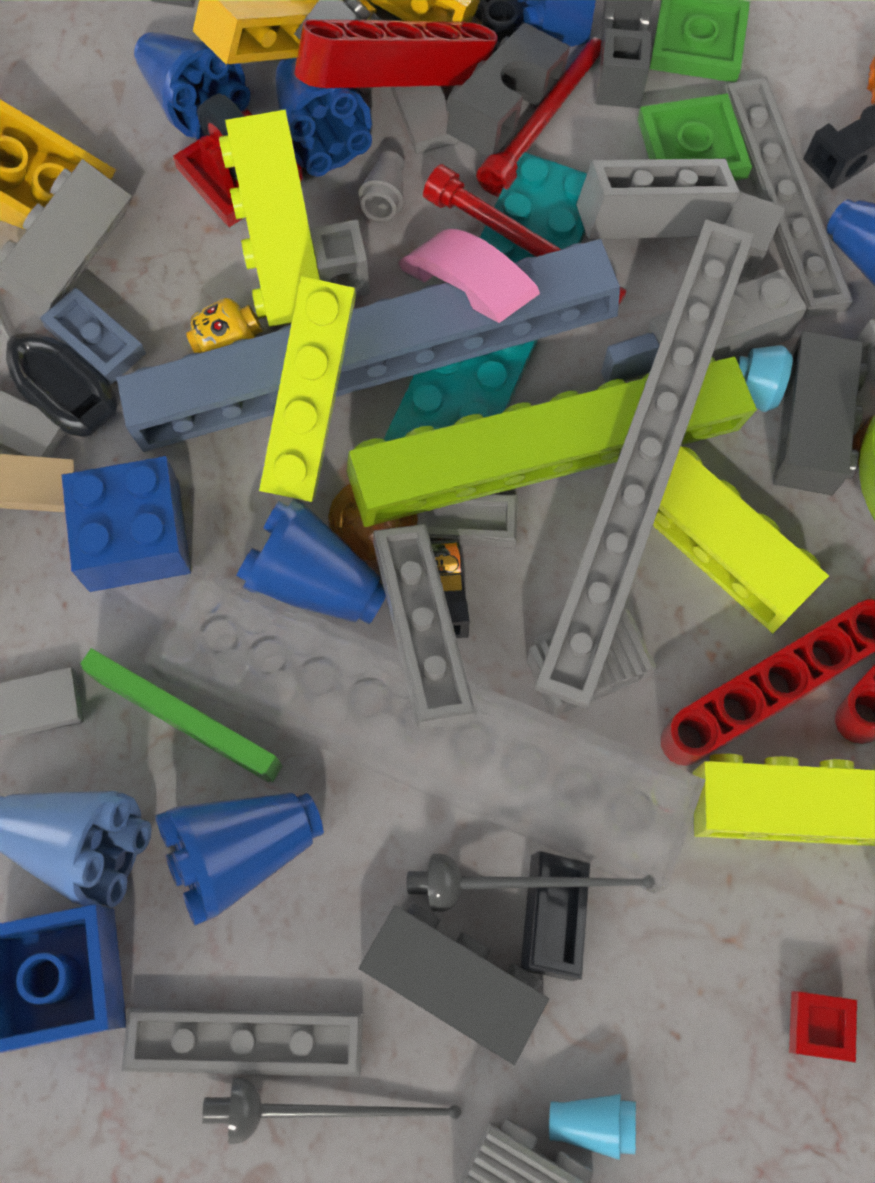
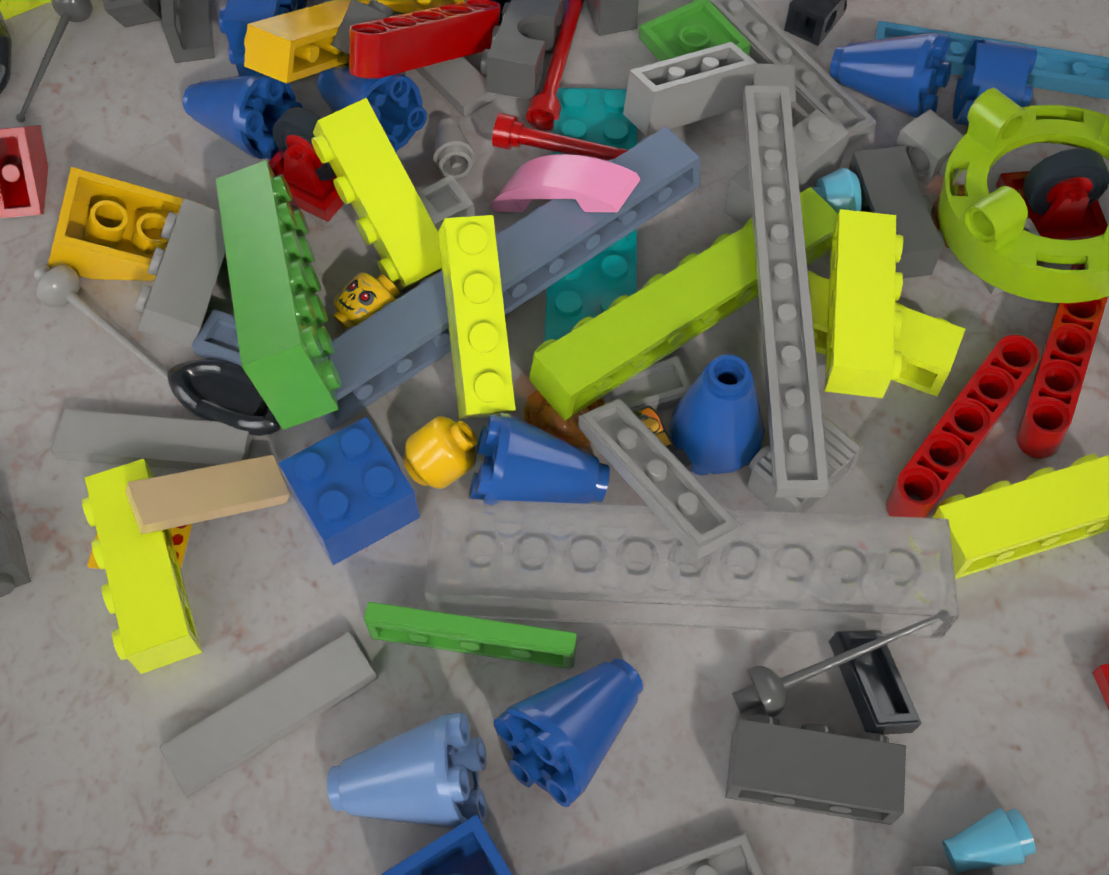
camera: 20 degrees left, 10 degrees down
(121, 297) = (275, 296): none -> bright green brick
(228, 516) = (440, 452): none -> yellow head
(520, 584) = (719, 418): none -> blue cone
(630, 358) = (722, 217): sand blue tile -> none
(723, 511) = (862, 305): none -> neon yellow brick

